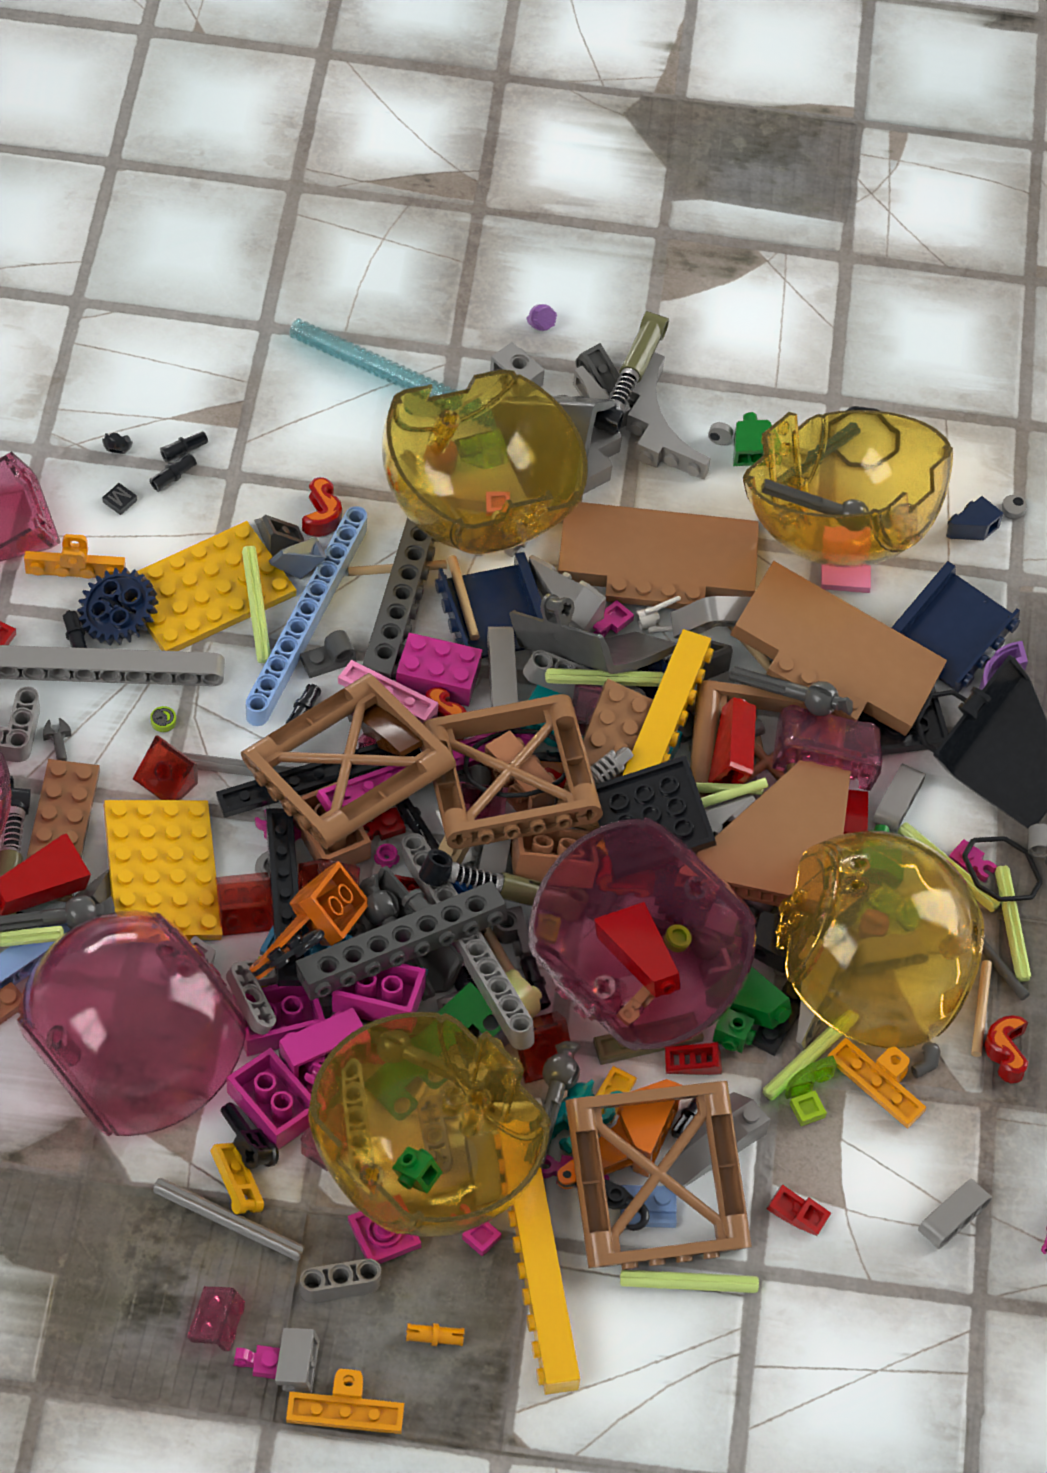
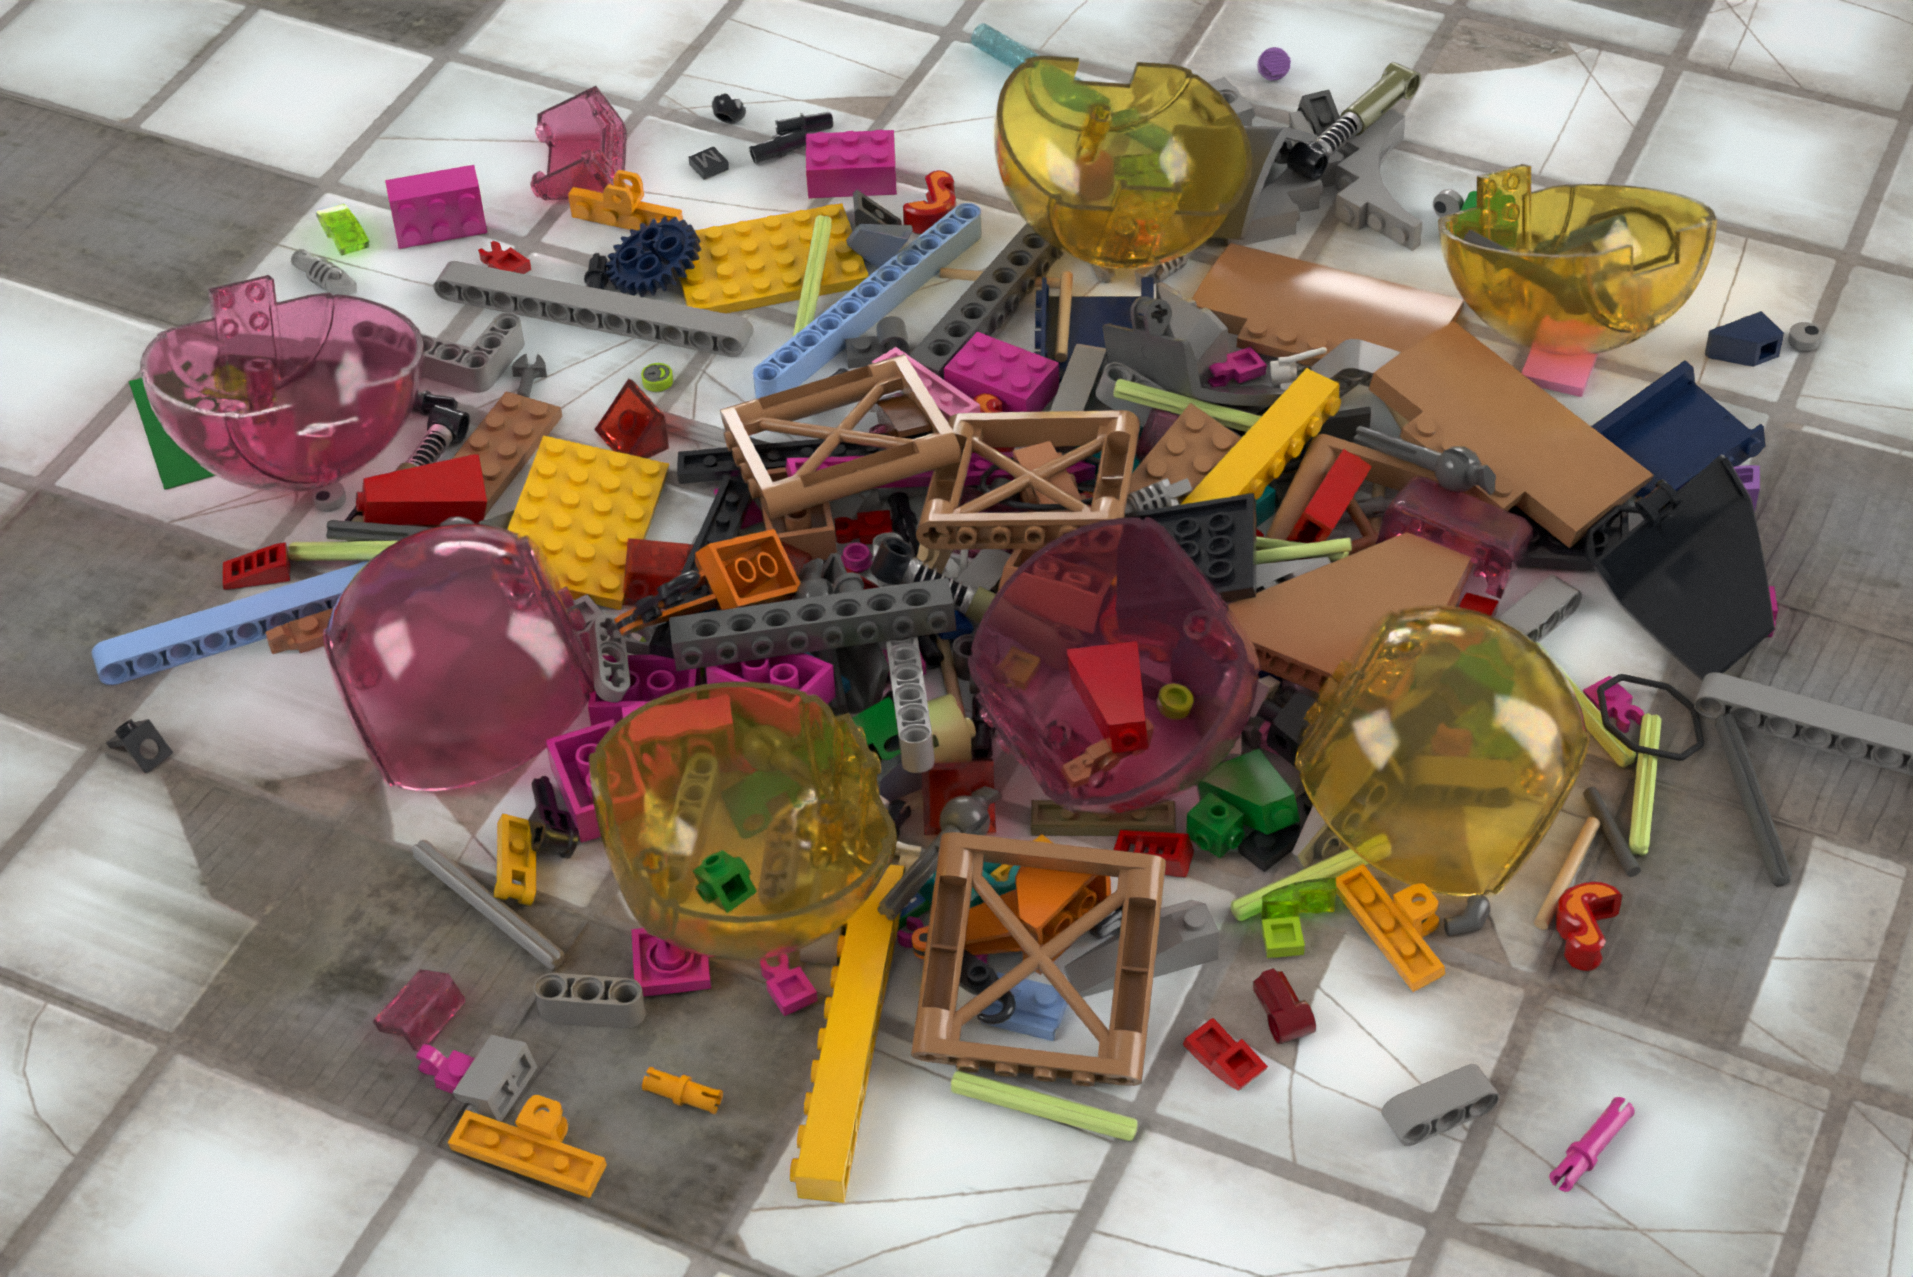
camera: 25 degrees right, 10 degrees down
(241, 481) = (850, 162): none -> dark pink brick
(831, 1170) = (1285, 1013): none -> dark red piece

